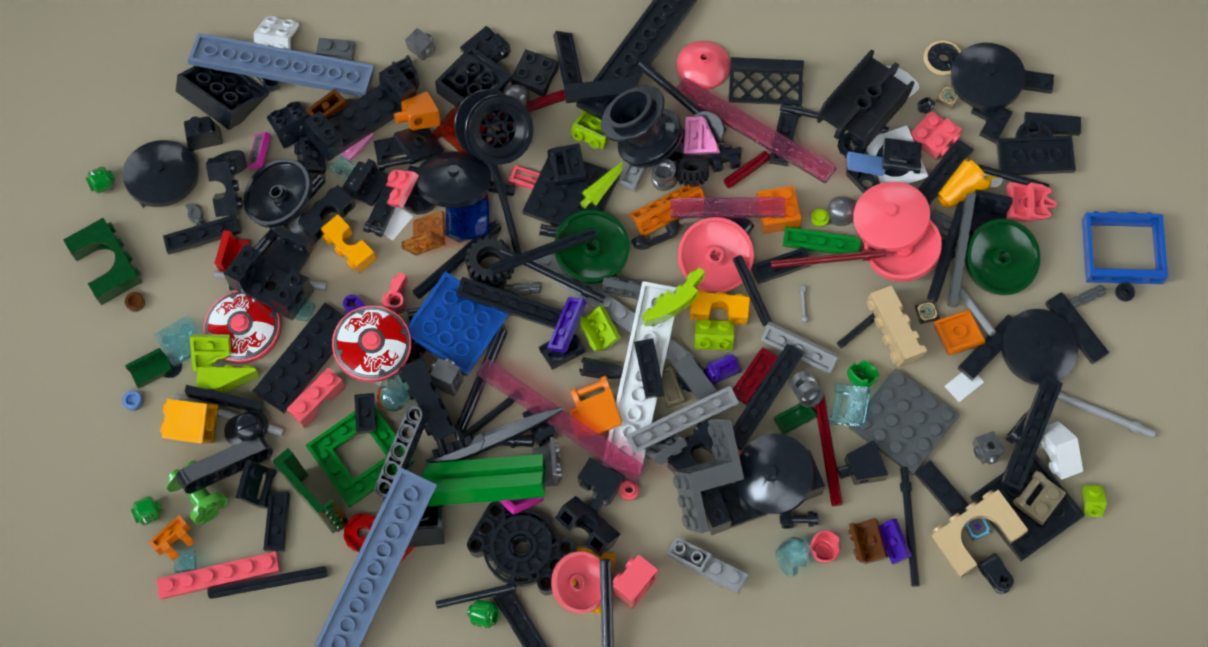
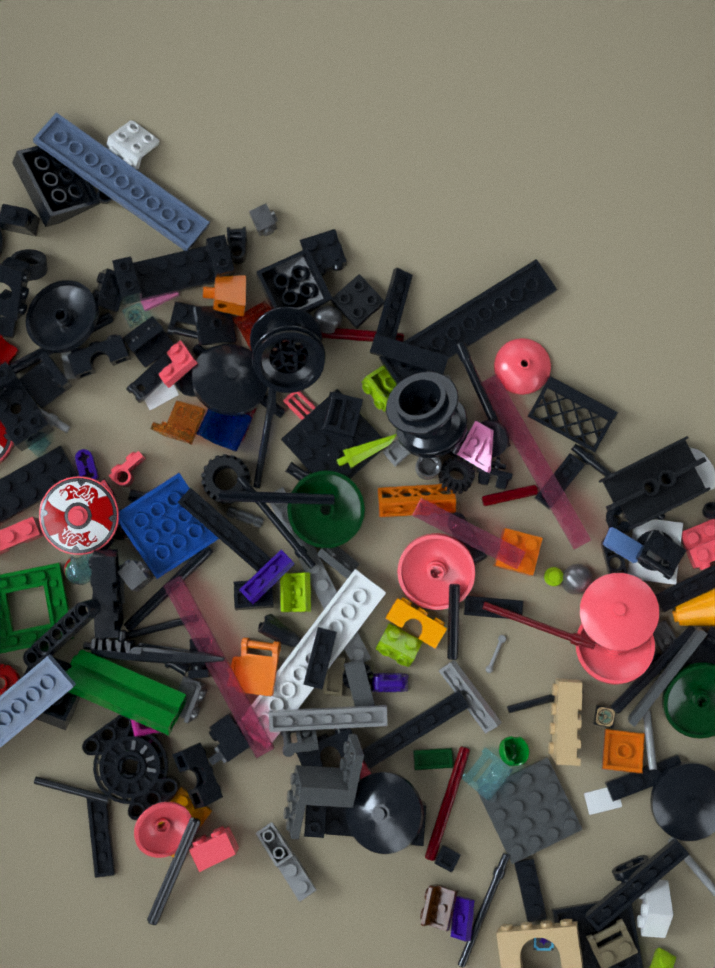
camera: 20 degrees right, 15 degrees up
(258, 151) = (64, 262): dark pink tile -> none
(289, 123) = (104, 245): black bracket -> none
(328, 105) = (144, 248): reddish brown brick -> none
(336, 48) = (181, 187): dark grey plate -> none
(358, 255) = (99, 382): light orange arch -> none
(365, 413) = (47, 576): black plate -> none
(452, 263) = (194, 460): black axle -> none
(483, 614) = (70, 810): green head -> none
(628, 496) = (246, 762): coral plate -> none
(641, 243) = (410, 524): black bar -> none
(669, 305) = (367, 607): lime slope -> none
(754, 375) = (415, 703): dark red plate -> none
(787, 519) = (399, 861): black bar -> none
(795, 551) = (366, 888): clear light blue helmet -> none
(806, 389) = (454, 742): flat silver wheel -> none
(820, 241) = (542, 602): green plate -> none
(825, 546) = (397, 894): coral hair -> none
(853, 496) = (447, 858): none -> black plate
(864, 465) = (471, 835): black torso -> none
(988, 448) = (592, 869): flat silver brick -> none

